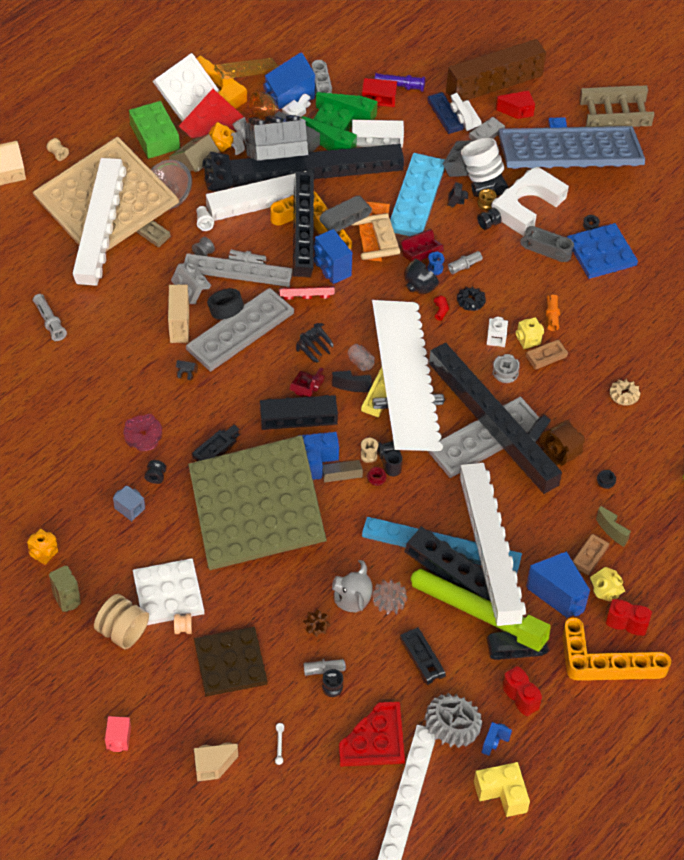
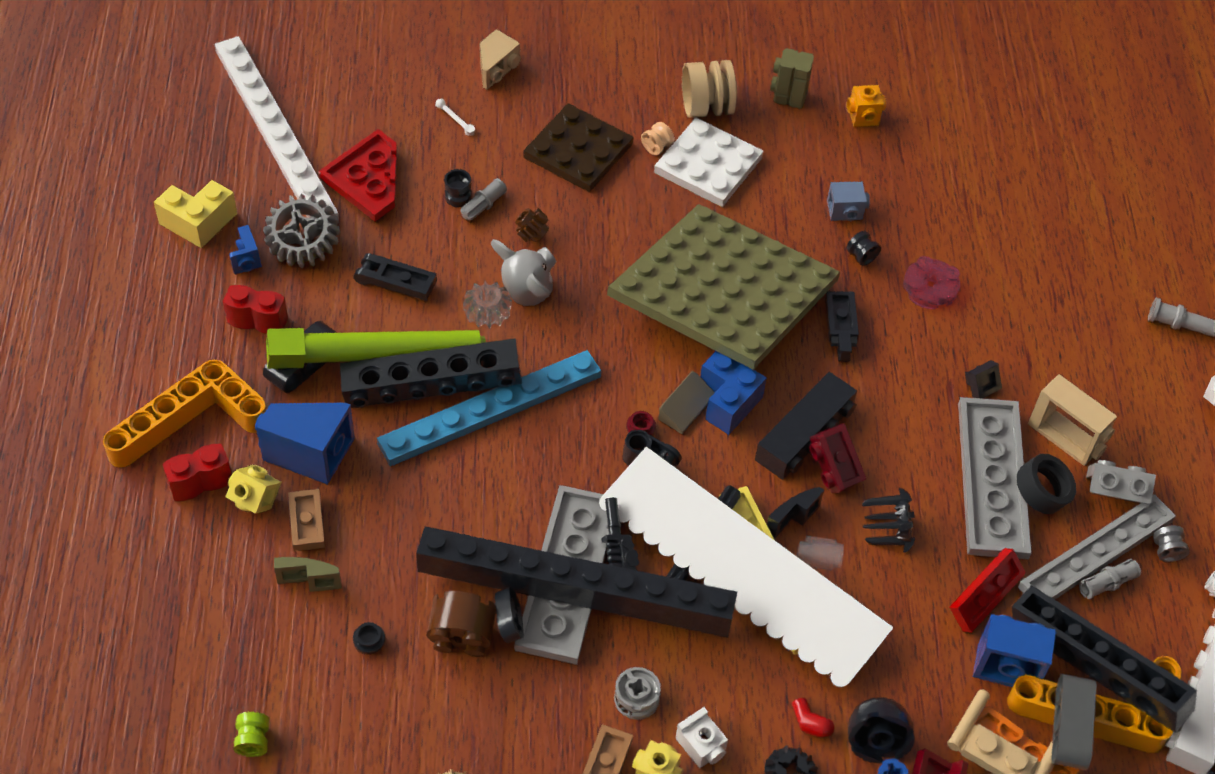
camera: 135 degrees right, 0 degrees up
(118, 733) = (603, 22): coral brick -> none
(369, 449) = (685, 442): tan bush -> none
(452, 425) = (619, 546): none -> black piece
(491, 545) = (428, 415): white brick -> none

